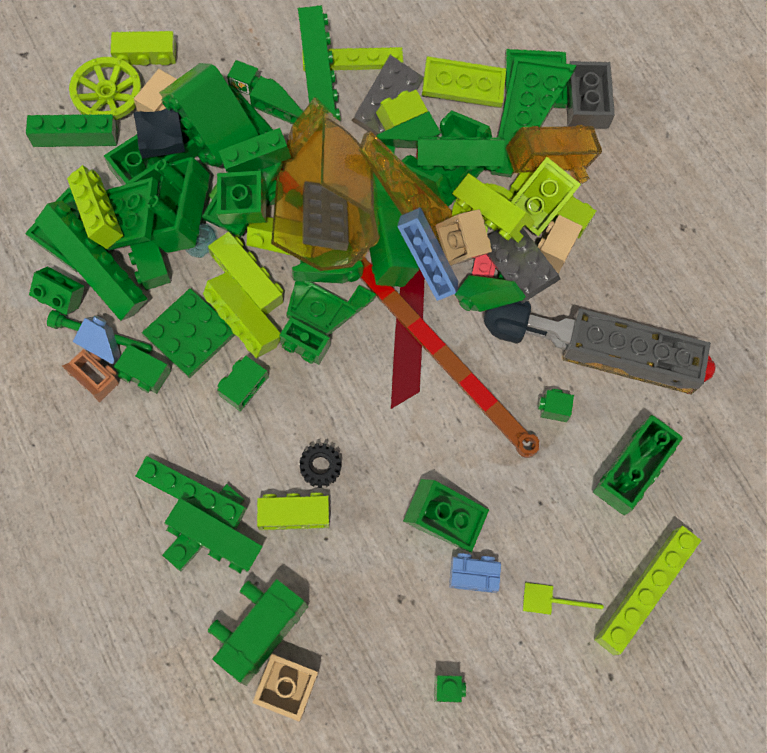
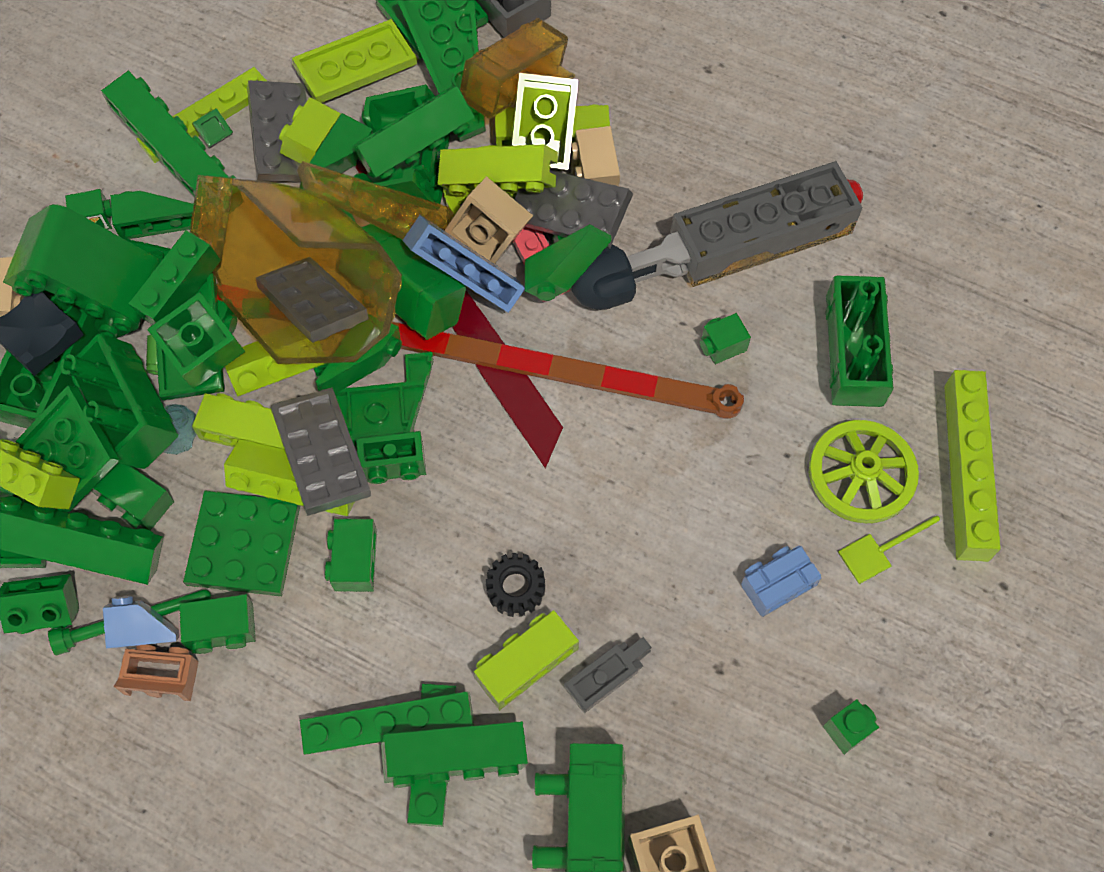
camera: 30 degrees left, 5 degrees down
(264, 310) = (320, 451): none -> flat silver plate
(333, 554) = (607, 673): none -> dark grey hinge
(350, 71) = (212, 128): none -> green tile
(446, 514) = (697, 538): green slope -> none
(574, 549) = (861, 475): none -> lime wheel

